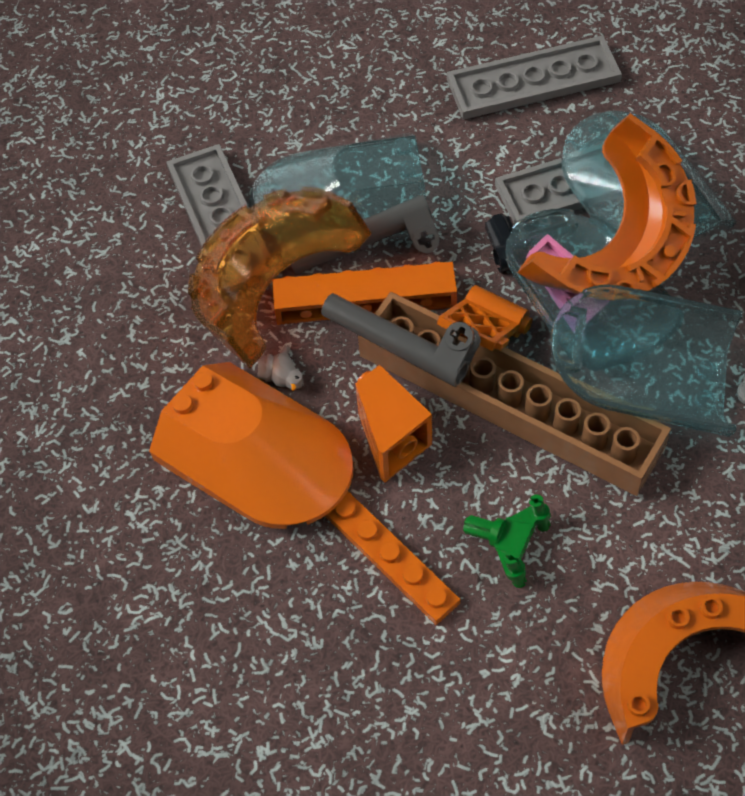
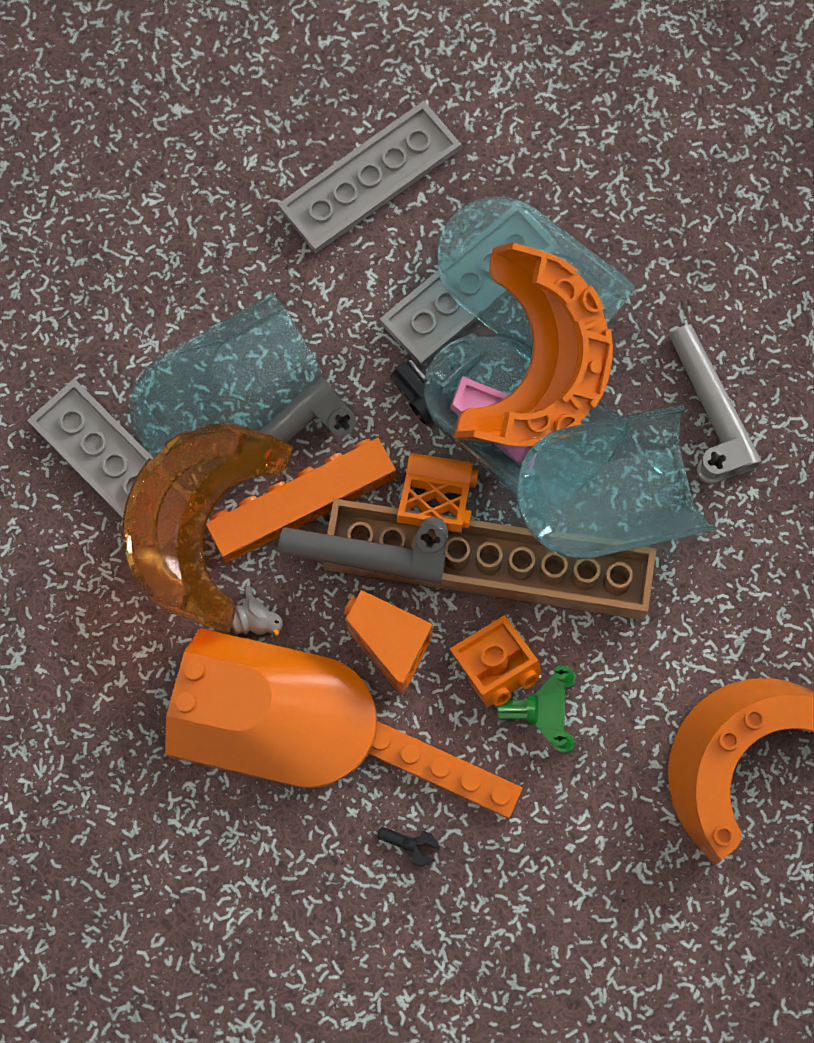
camera: 25 degrees left, 15 degrees up
(333, 612) = (408, 843): none -> black bar
(482, 480) = (497, 662): none -> orange plate

